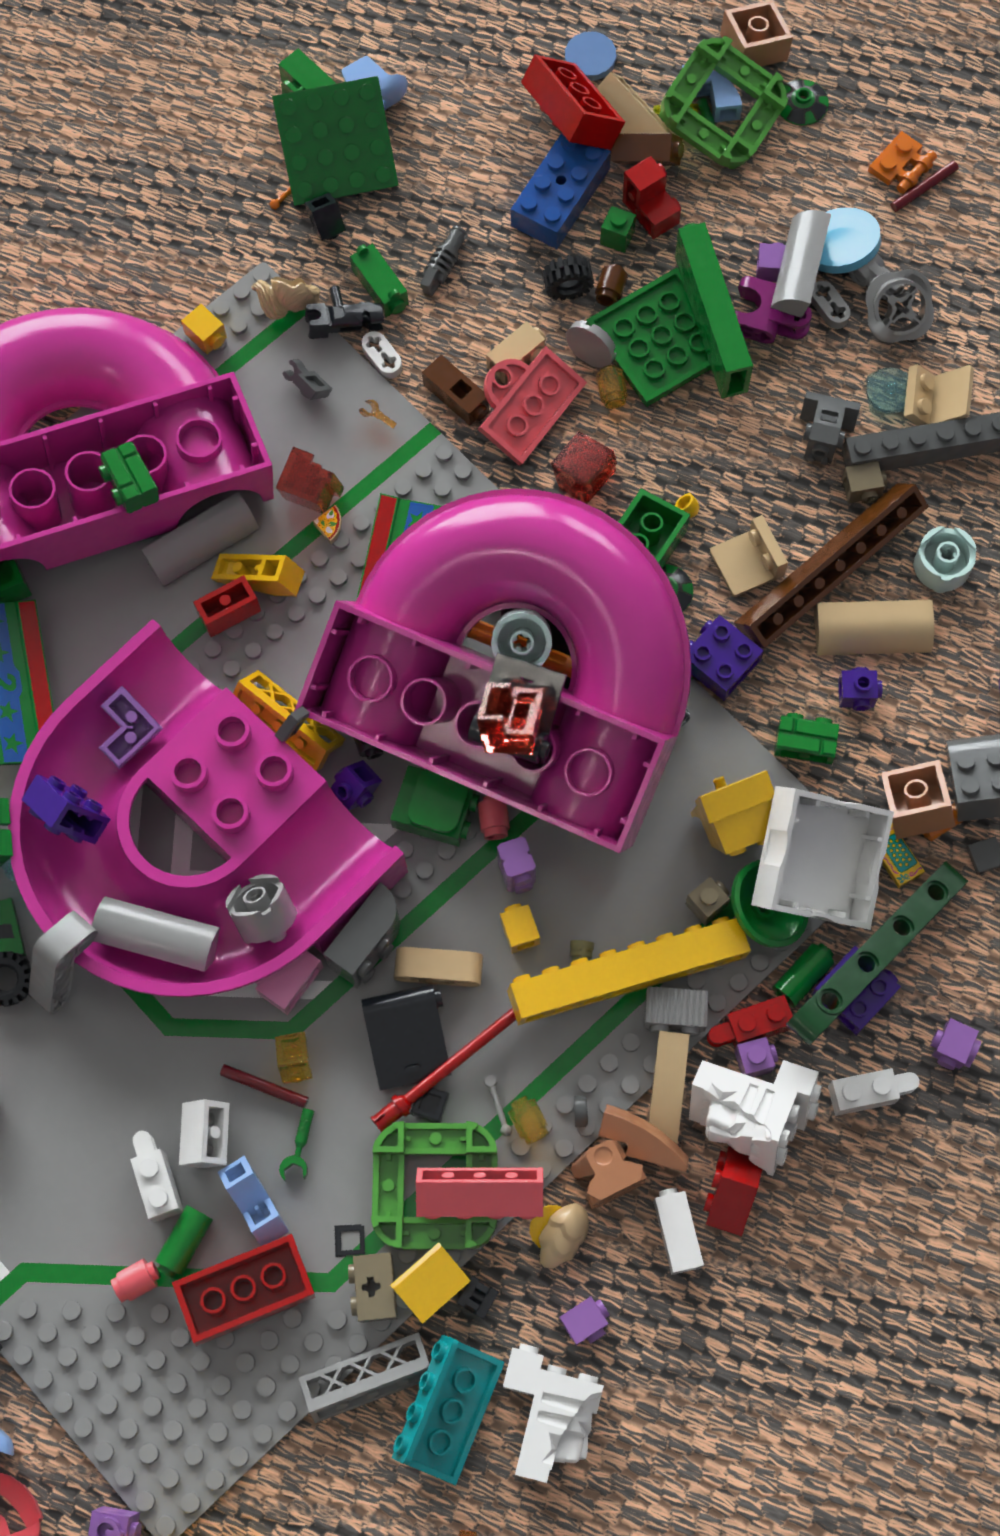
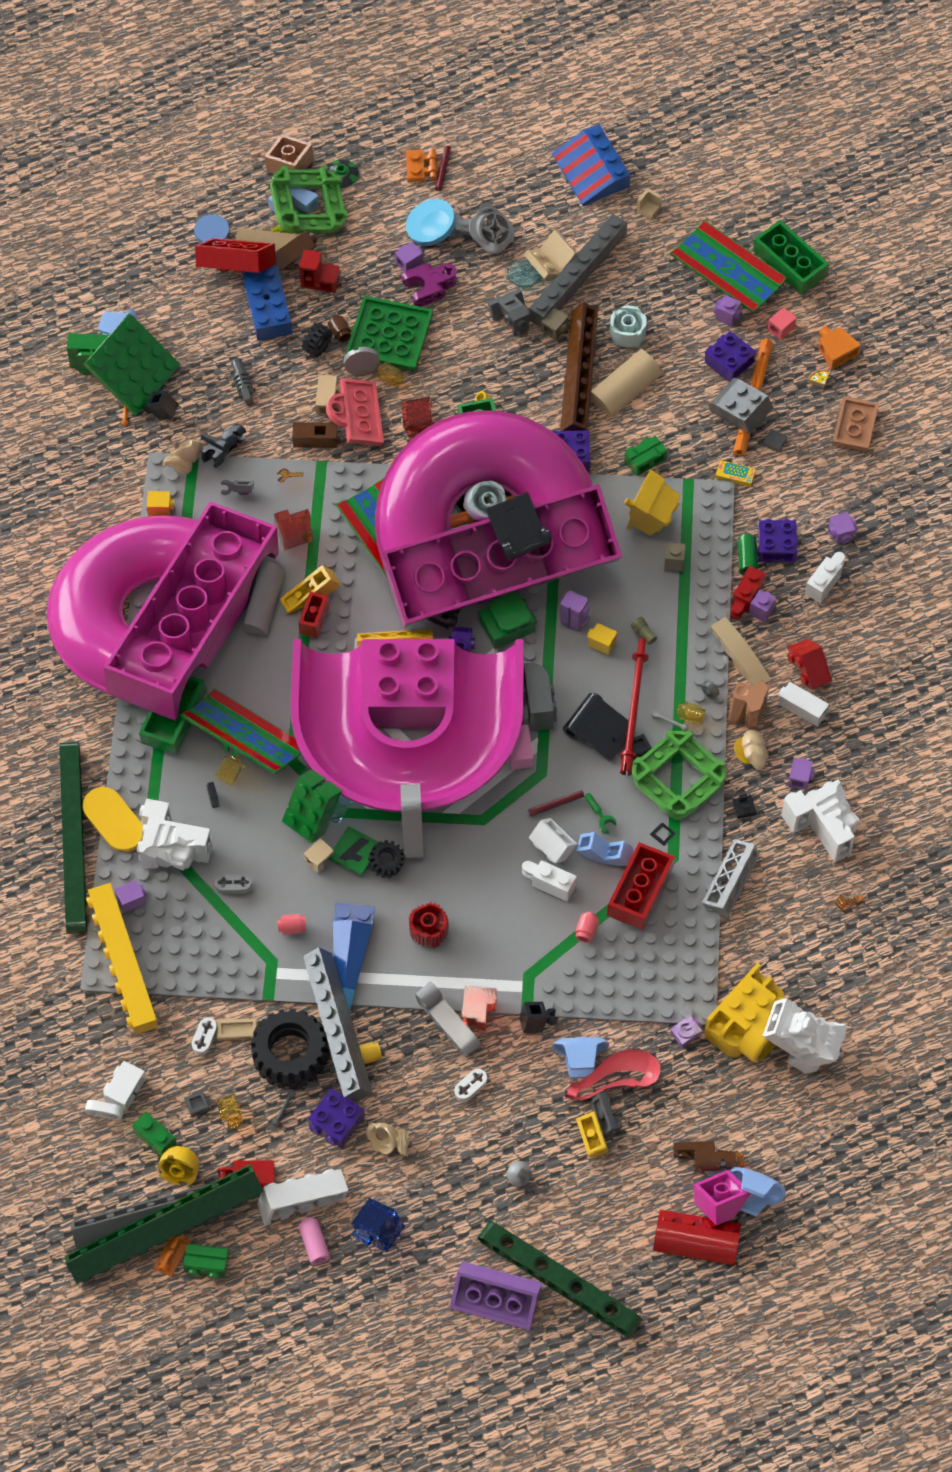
camera: 45 degrees left, 10 degrees down
(65, 809) = (344, 751): dark purple brick -> none
(129, 477) = (219, 580): green brick -> none
(135, 729) = (336, 697): medium lavender brick -> none
(155, 934) = (445, 769): light grey brick -> none
(183, 1242) = (590, 892): green brick -> none
(261, 909) = (482, 718): light grey brick -> none
(292, 724) = (412, 628): dark grey tile -> none
(293, 1057) = (558, 778): clear yellow bracket -> none
(329, 524) = (320, 542): tile -> none
(377, 358) = (258, 448): white beam -> none
(379, 279) = (220, 414): green brick -> none
(381, 1270) = (696, 837): dark tan brick -> none
(430, 1283) = (720, 811): yellow slope -> none
(438, 966) = (581, 685): tan beam -> none
(447, 1409) = (780, 856): teal bracket -> none
(479, 1192) = (703, 753): coral brick -> none
(493, 818) = (540, 603): coral brick -> none
(510, 718) = (523, 528): clear red plate -> none
(618, 229) = (316, 300): green brick -> none
(627, 970) = (671, 612): yellow brick -> none
(643, 1139) = (749, 676): nougat slope -> none
(676, 1010) = (707, 613): light grey brick -> none
(713, 310) = (407, 298): green brick -> none
(750, 559) = (538, 397): tan bracket -> none
(753, 1113) = (785, 621): white brick -> none
(763, 925) = (704, 533): green dish -> none
(800, 262) = (426, 244): light grey brick -> none
(822, 857) = (709, 492): white tile -> none
(832, 303) = (454, 256): light grey beam -> none
(859, 689) = (647, 414): dark purple brick -> none
(876, 953) = (773, 511): dark green beam -> none
(918, 799) = (723, 437): nougat brick -> none

